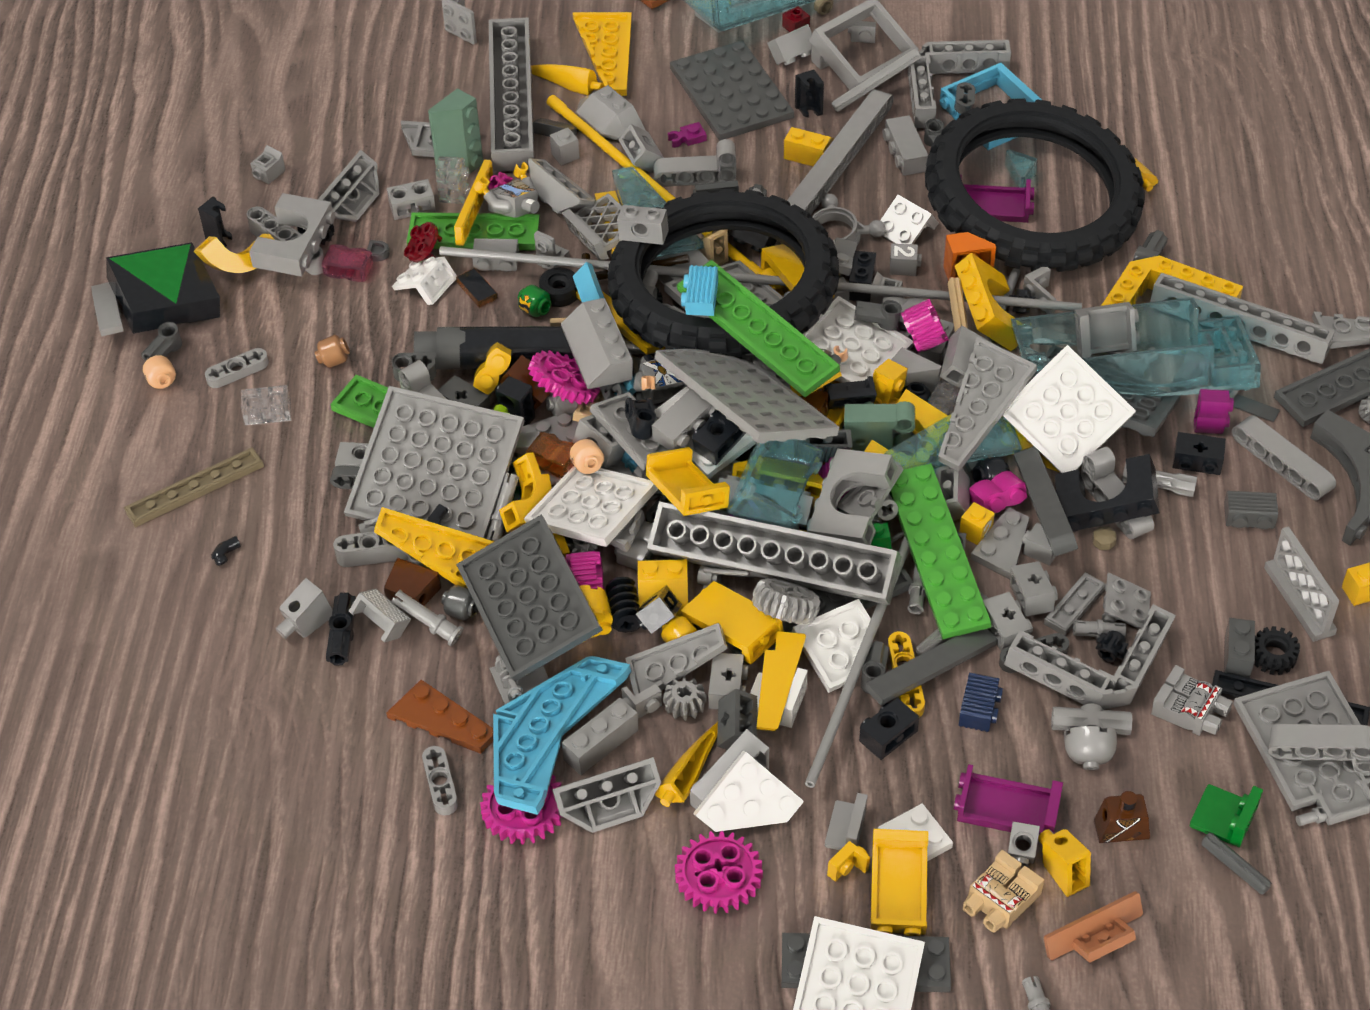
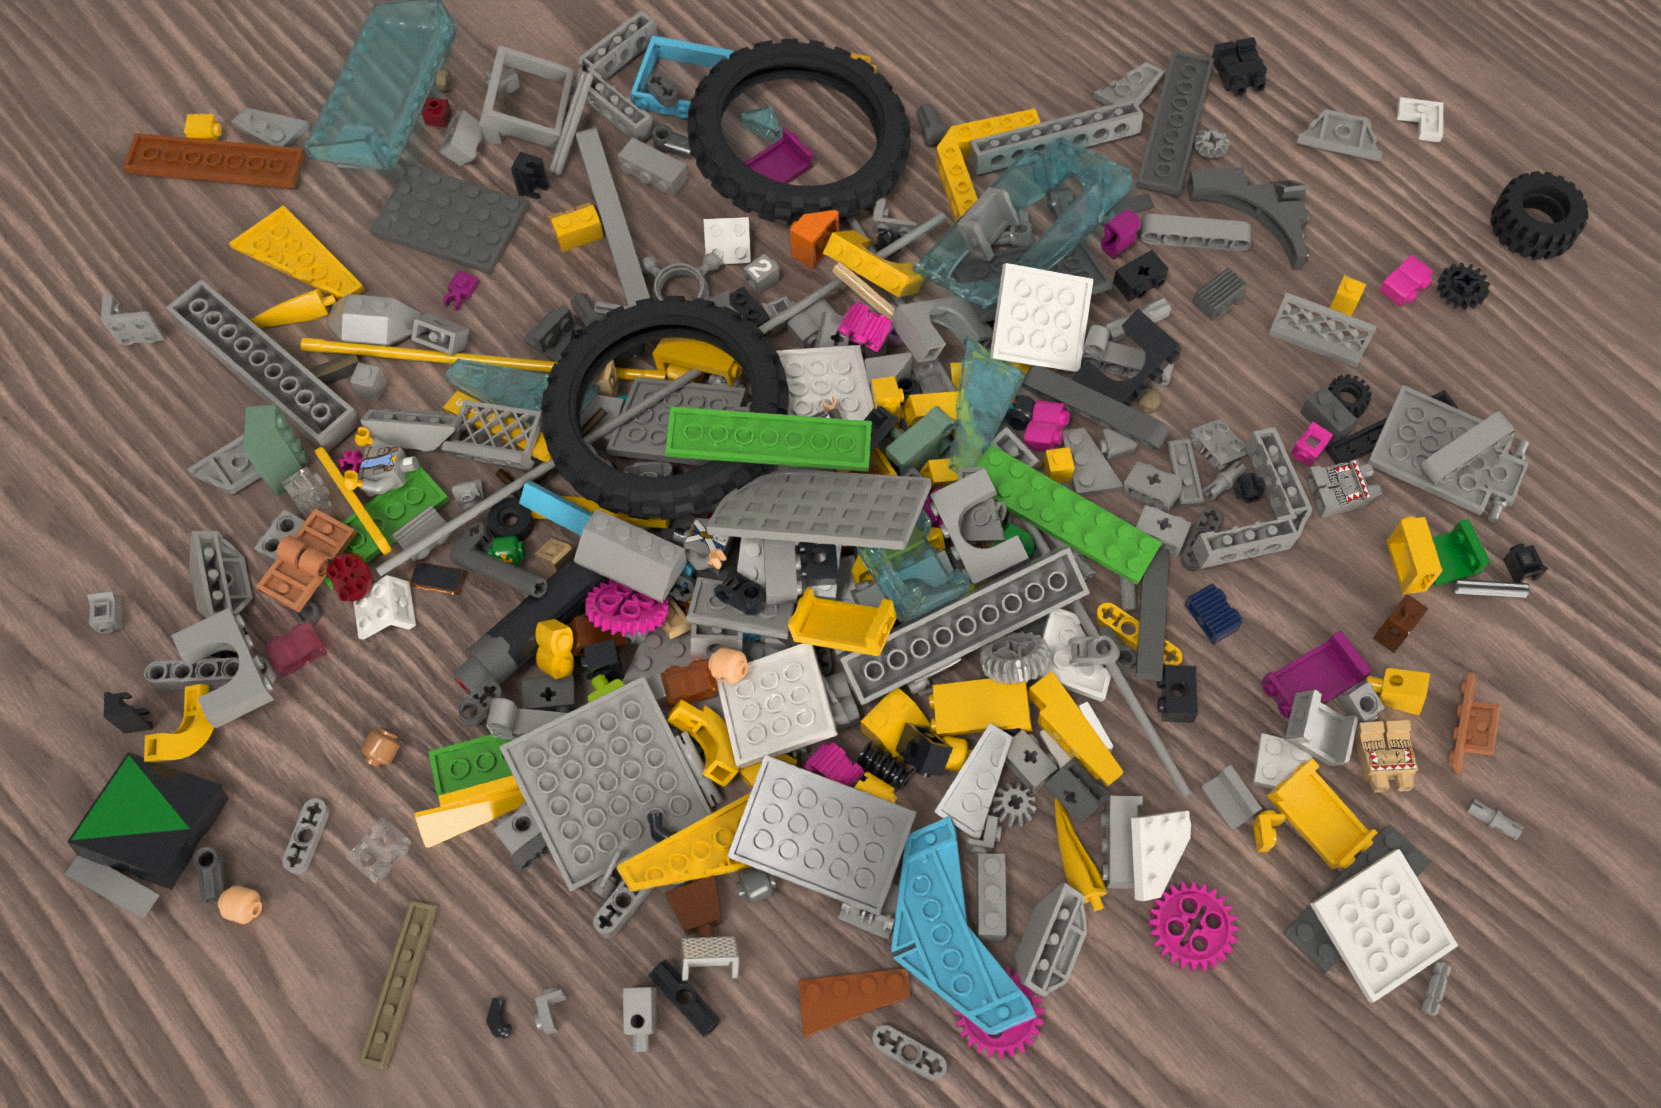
camera: 45 degrees left, 15 degrees up
(255, 566) = (545, 1017): none -> light grey bracket
(335, 422) = (468, 809): none -> yellow wedge
(405, 212) = (305, 559): none -> nougat plate
(437, 623) = (759, 921): light grey pin -> none
(509, 286) = (472, 554): none -> dark grey axle
(642, 224) = (566, 415): light grey brick -> none
(698, 169) = (508, 316): light grey beam -> none
(701, 290) = (699, 444): medium azure brick -> none
(850, 644) = (1087, 651): none -> light grey piece
(884, 314) = (818, 343): dark grey piece -> none
(965, 830) = (1320, 729): none -> light grey panel
(984, 396) = (976, 349): light grey wing -> none
(1090, 746) = (1323, 583): light grey cylinder -> none
(1091, 715) = (1297, 560): light grey piece -> none
(1187, 782) = (1413, 555): none -> yellow window
(1200, 657) = (1311, 444): none -> dark pink window
(1286, 863) = (1524, 562): none -> black window

